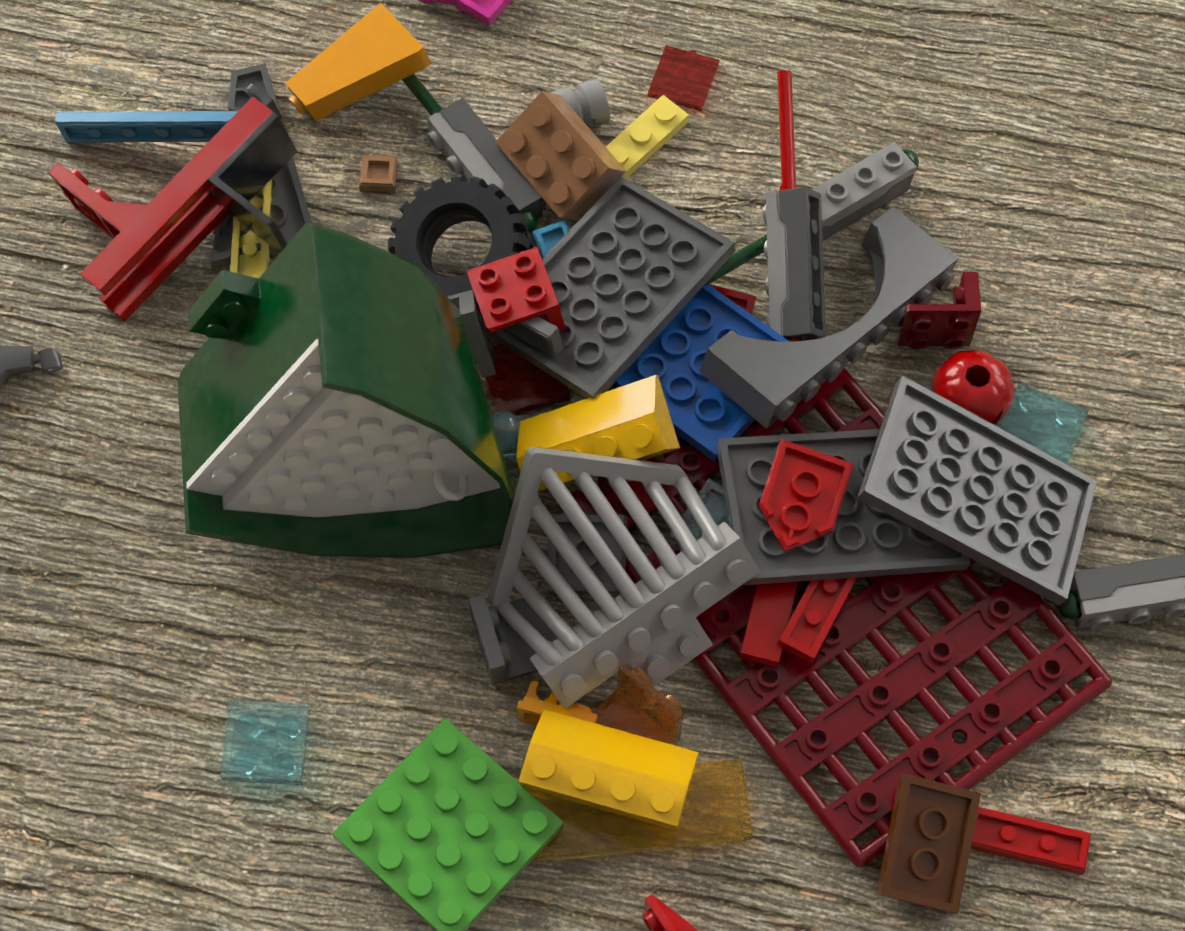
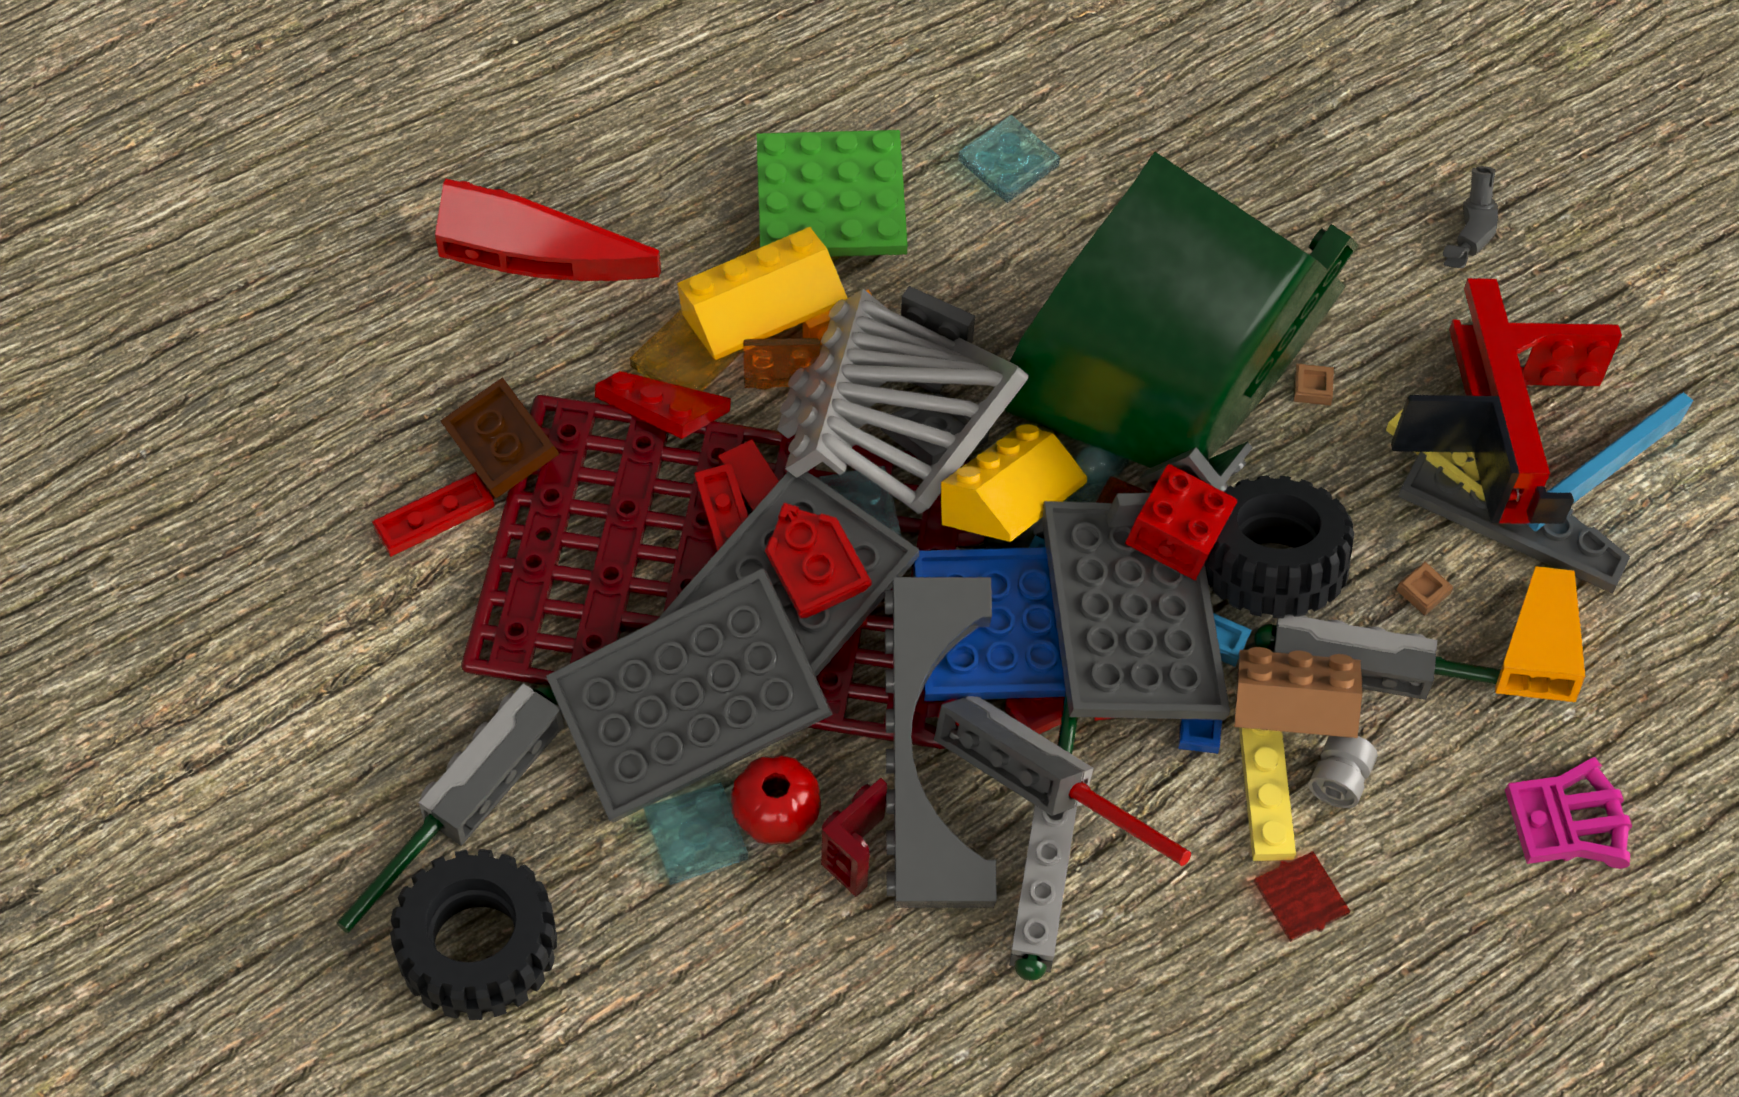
camera: 135 degrees right, 5 degrees down
(769, 763) = (662, 404): none -> red wing

